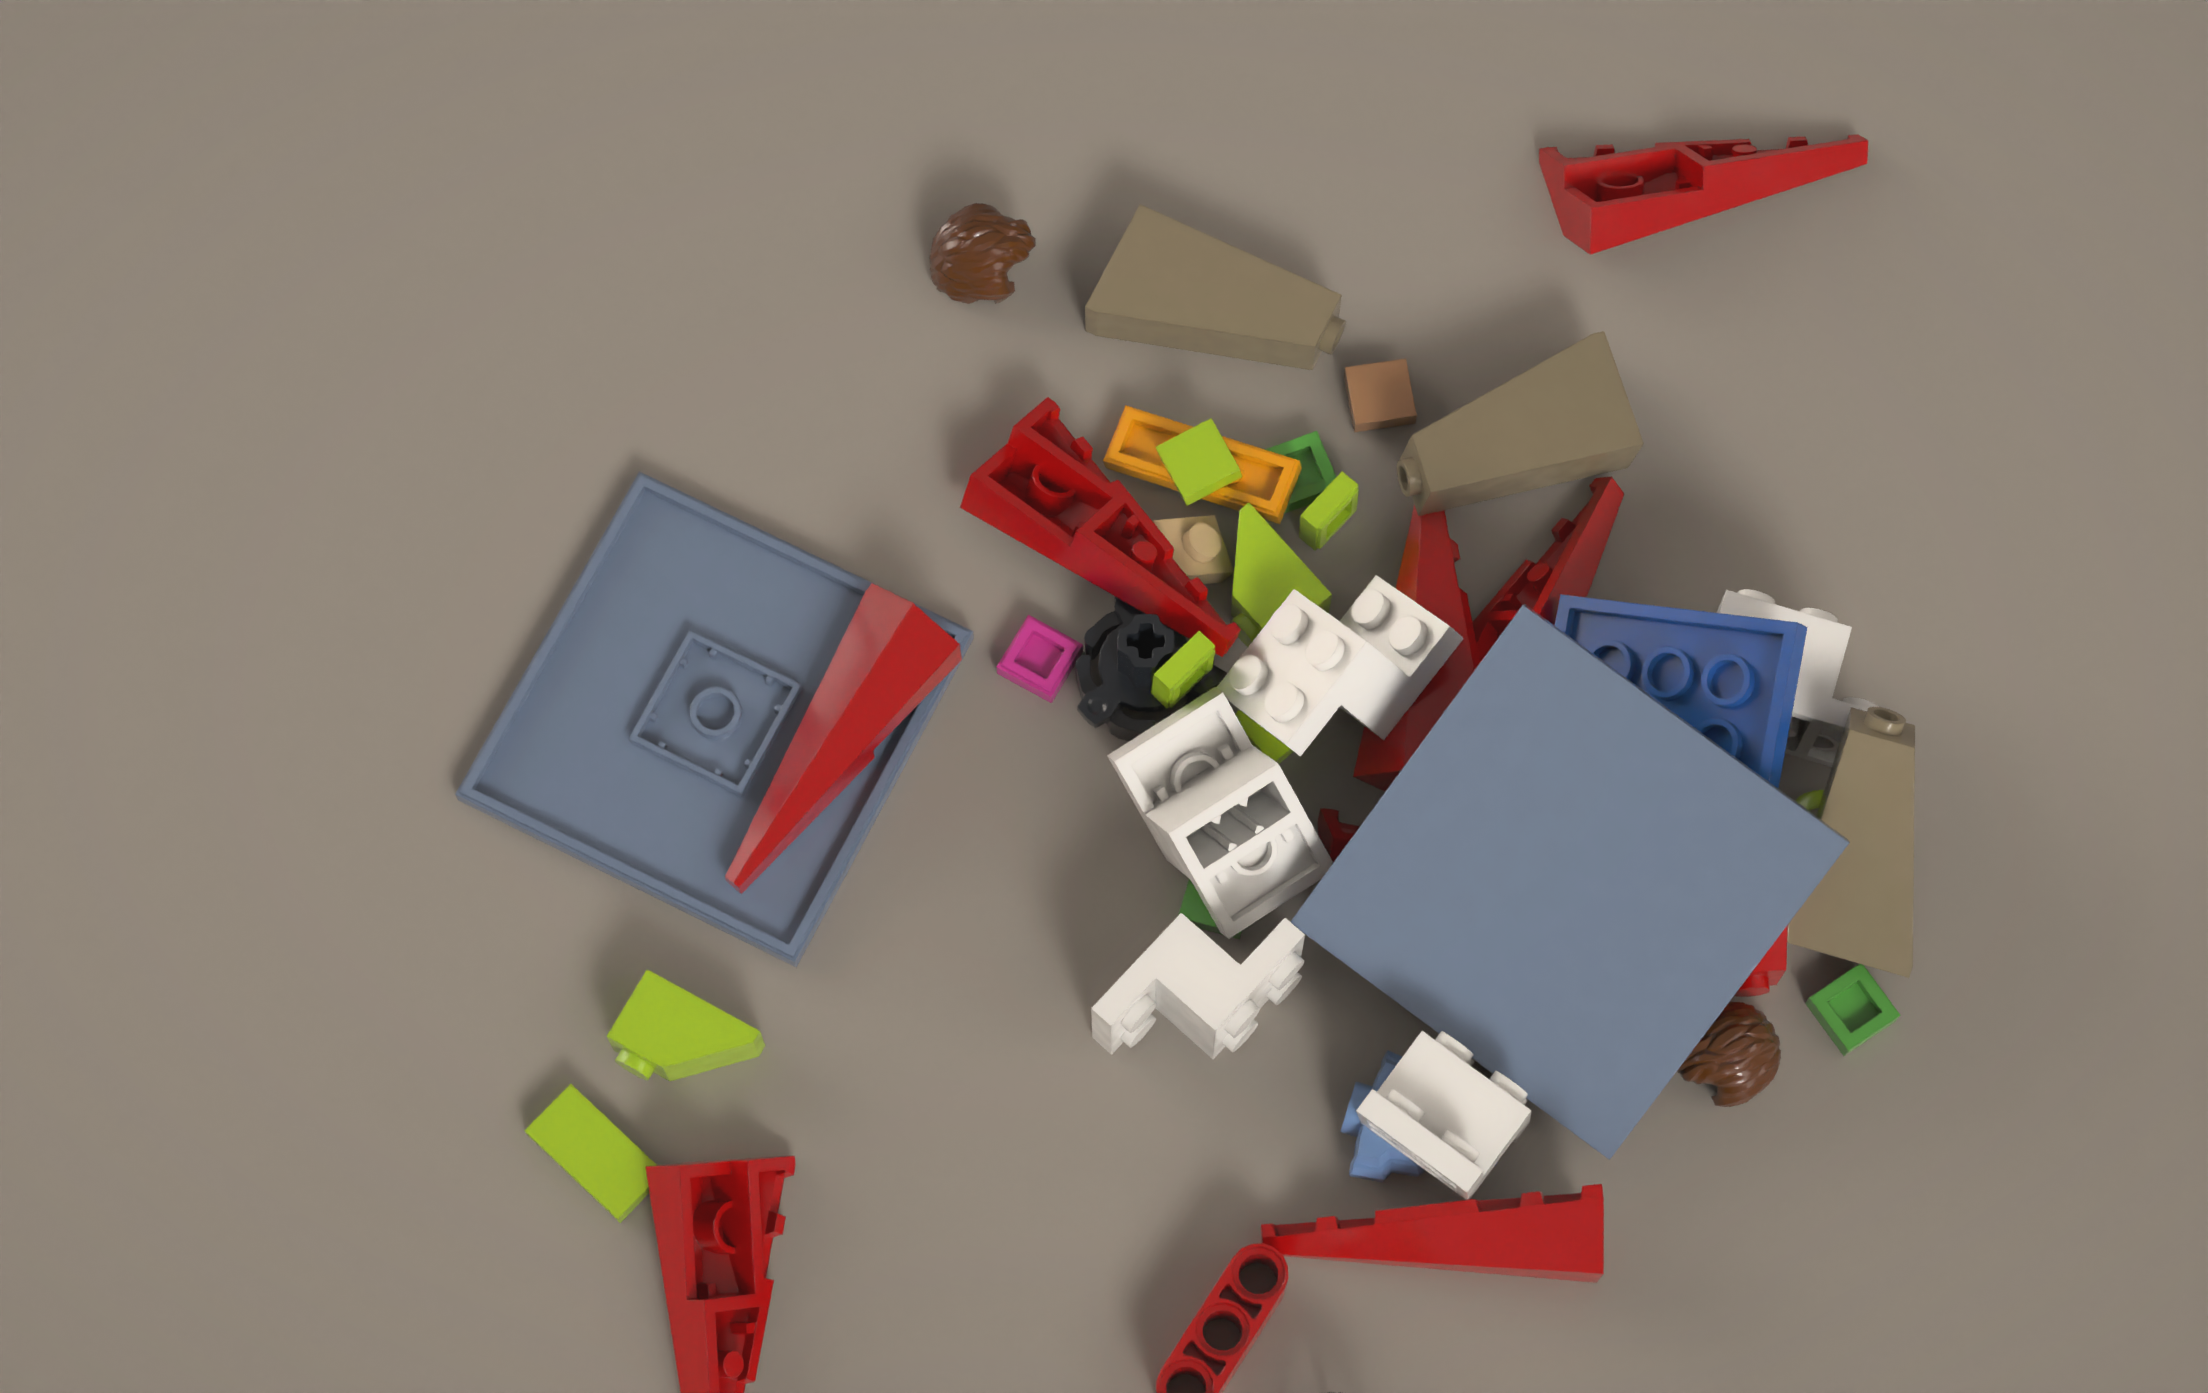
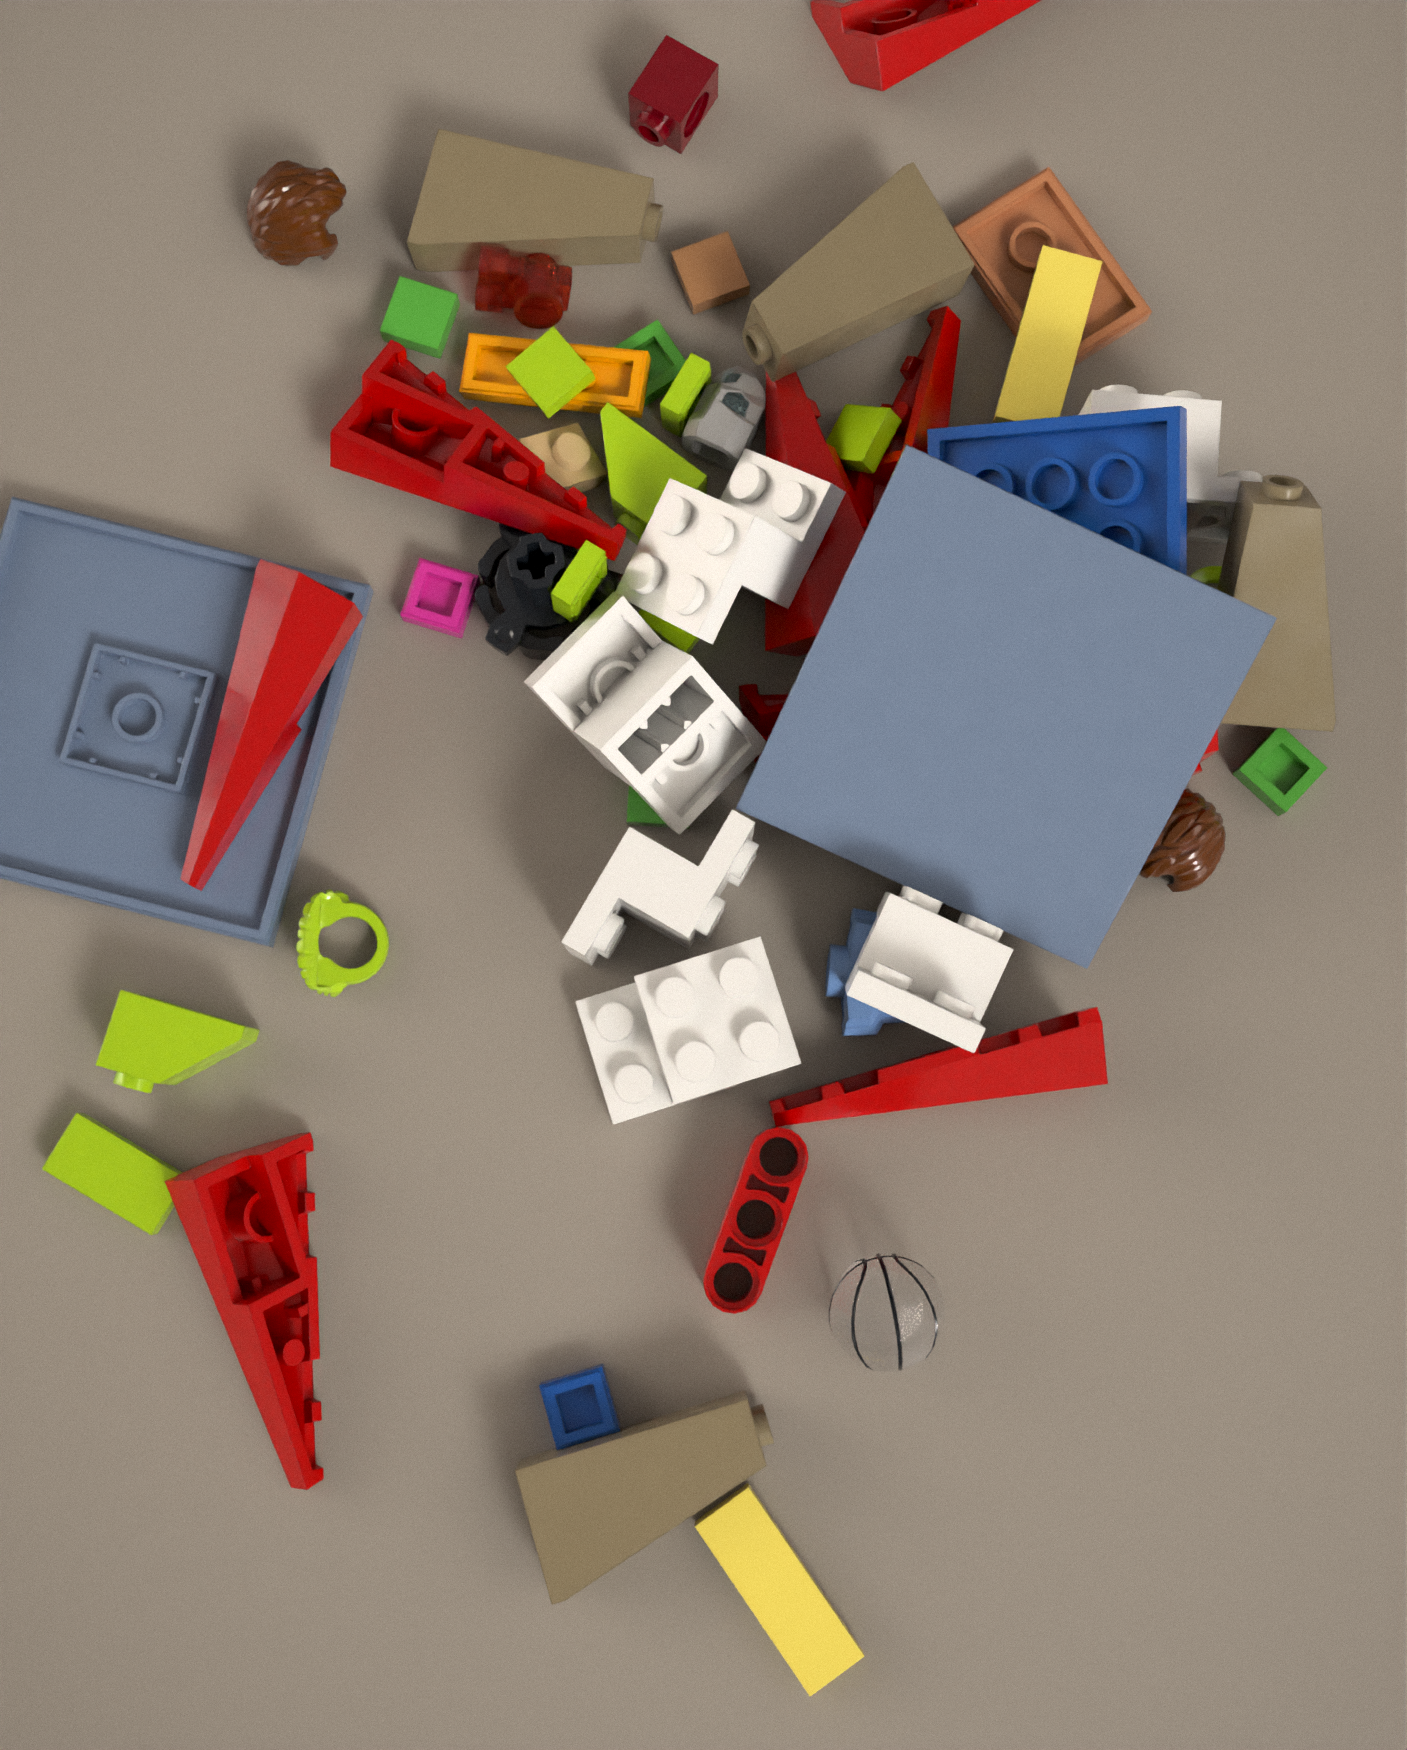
camera: 15 degrees left, 10 degrees up
(842, 998) = (321, 972): none -> lime piece
(1080, 379) = (420, 317): none -> bright green tile
(1193, 1132) = (688, 1030): none -> white bracket
(1197, 372) = (529, 284): none -> clear red plate
(1364, 542) = (726, 418): none -> light grey rock
(1379, 216) = (672, 95): none -> dark red brick
(1497, 588) = (863, 436): none -> lime tile
(1704, 529) = (1048, 336): none -> light yellow tile
(1723, 467) = (1005, 248): none -> nougat tile

